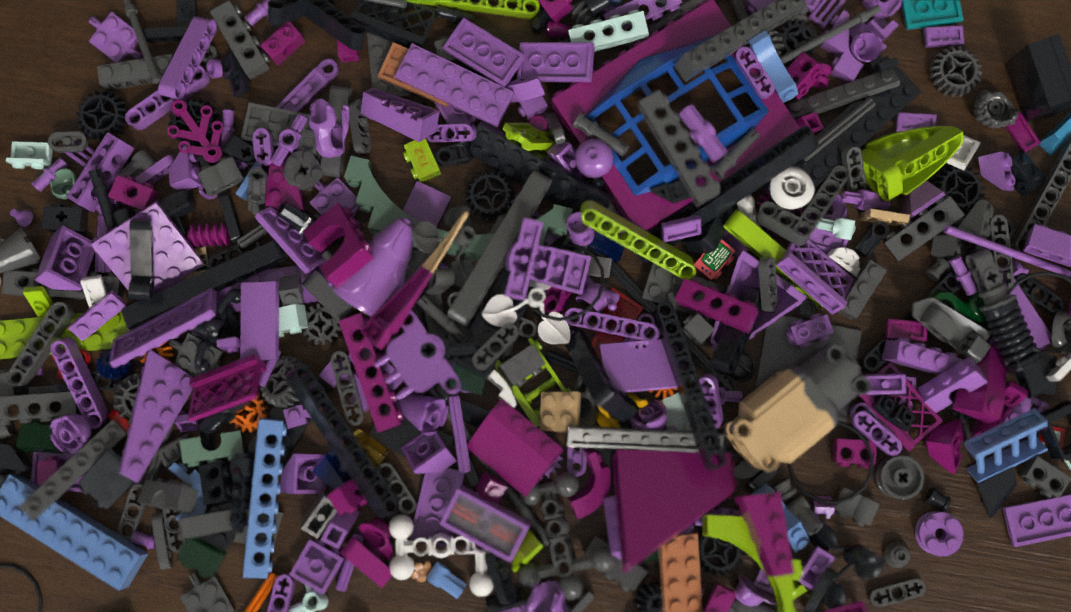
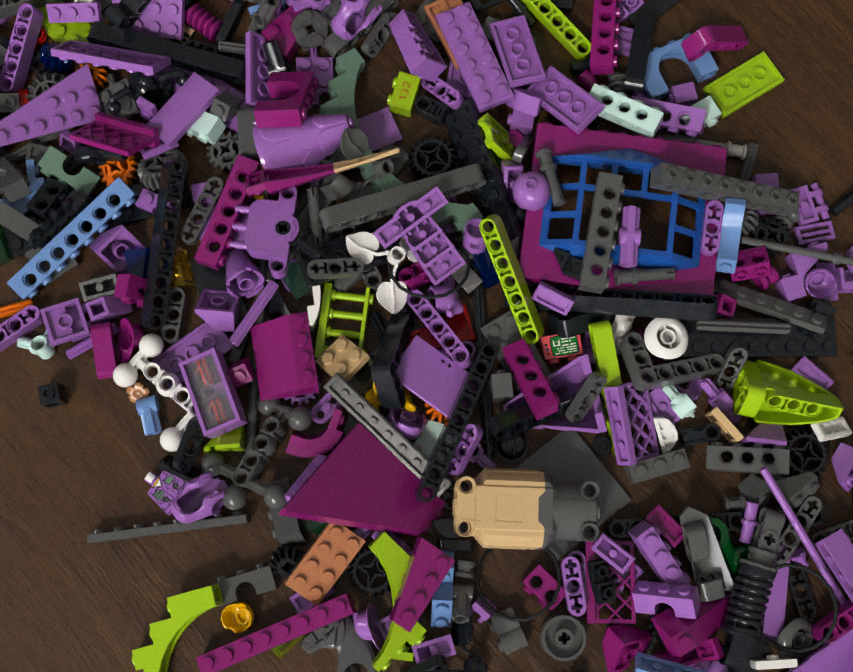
camera: 40 degrees right, 5 degrees down
(521, 366) = (343, 302): flat silver brick -> none
(816, 328) = (595, 465): medium lavender brick -> none

